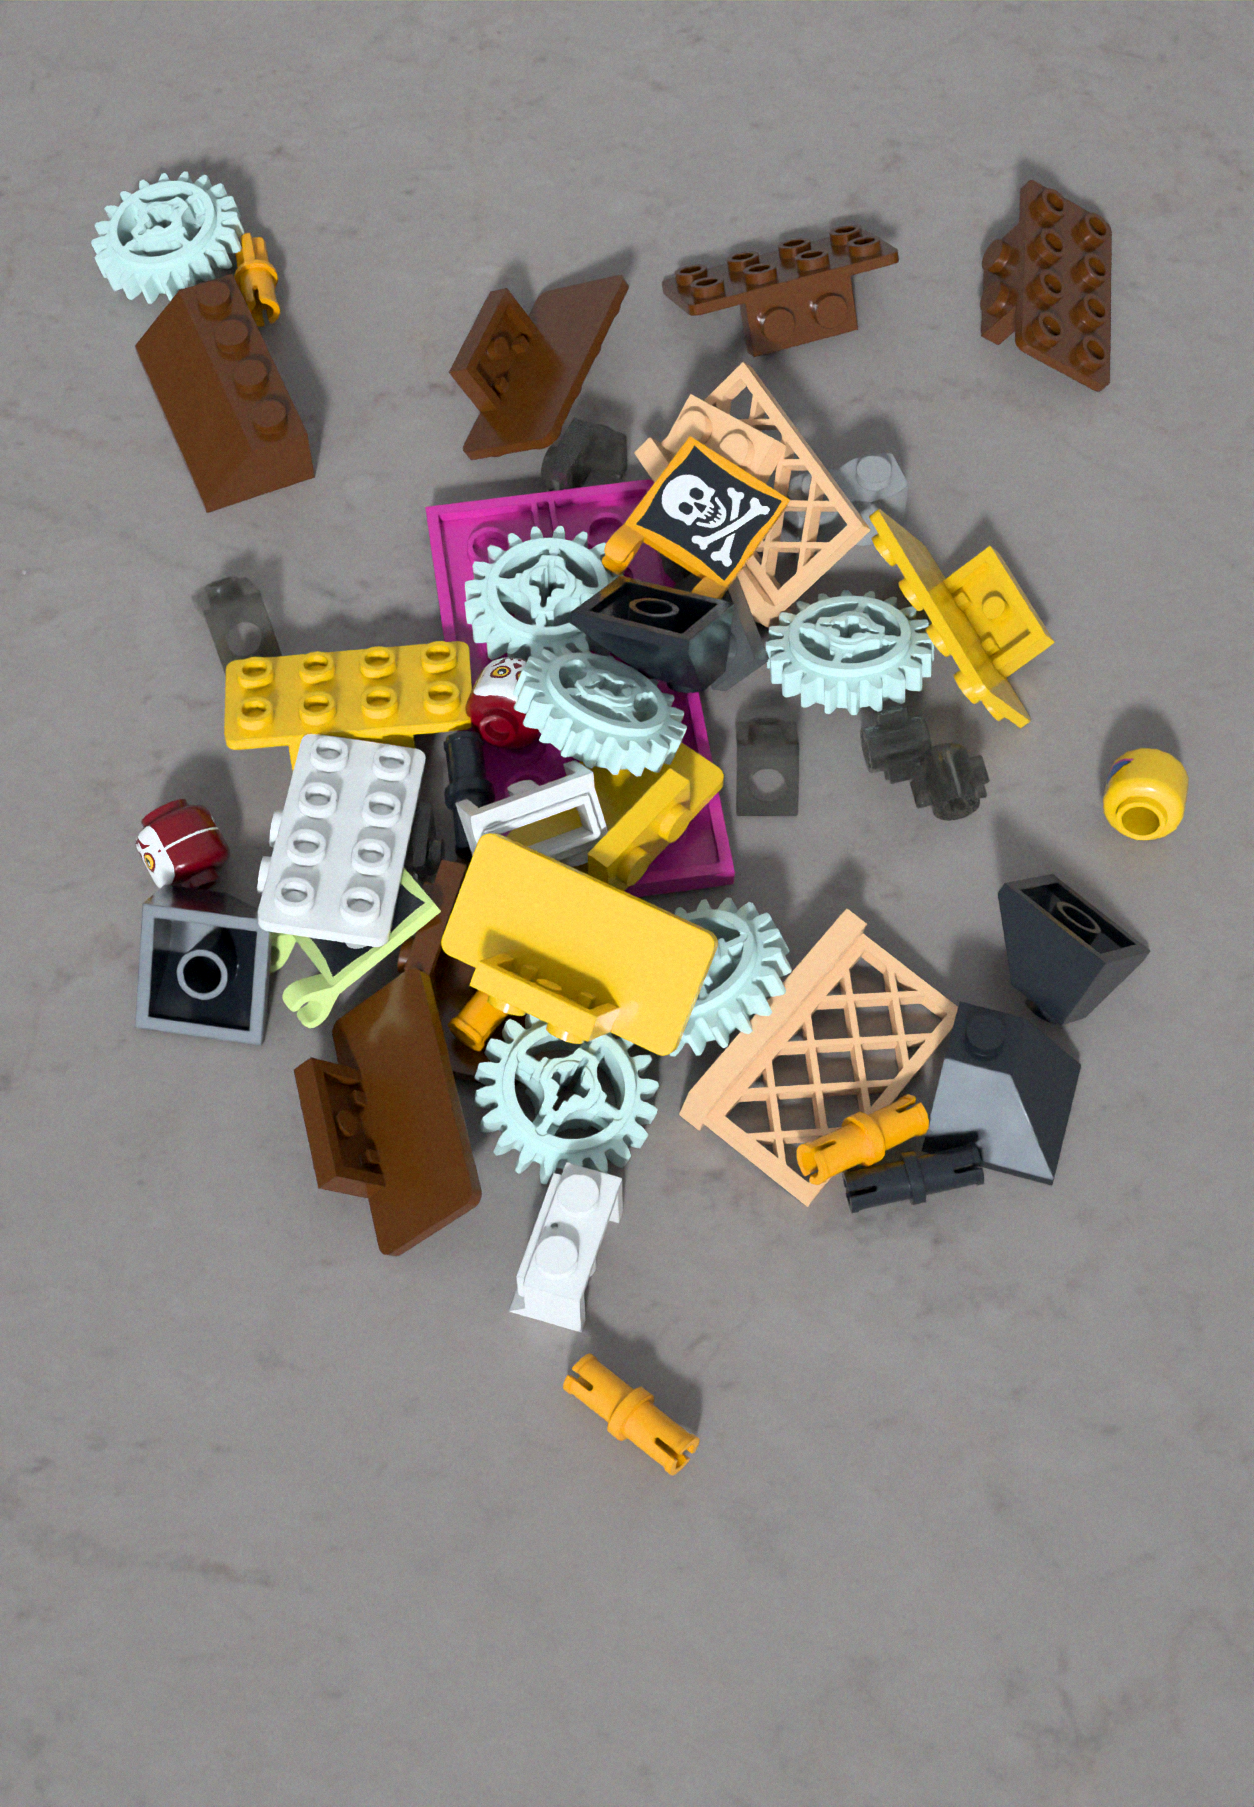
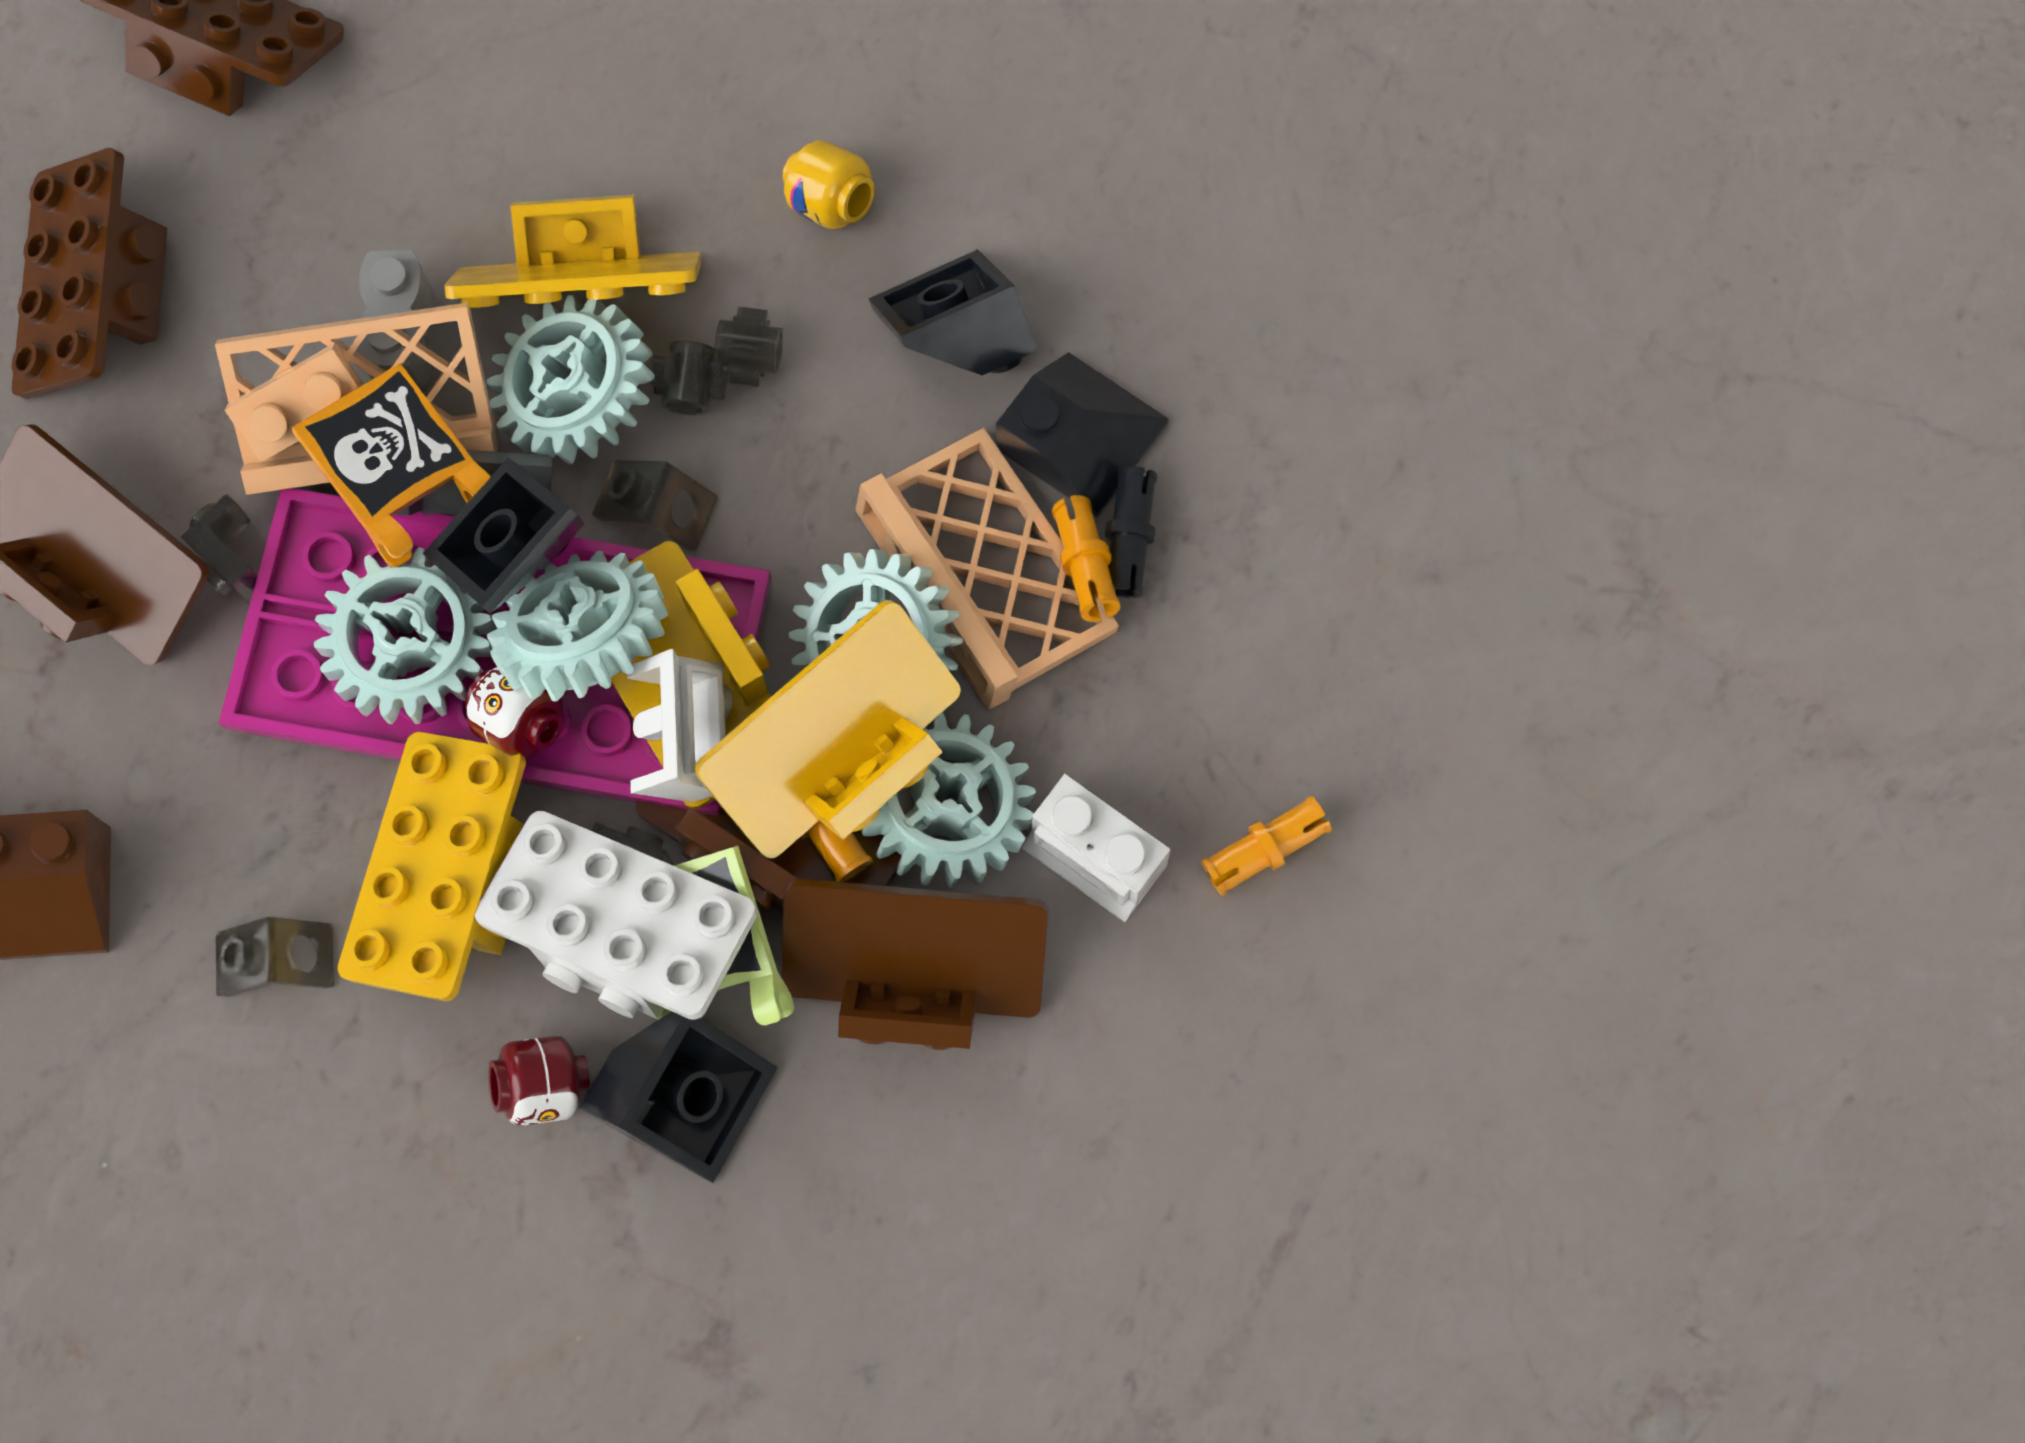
camera: 70 degrees left, 15 degrees up
(466, 781) = (592, 781): black pin -> none

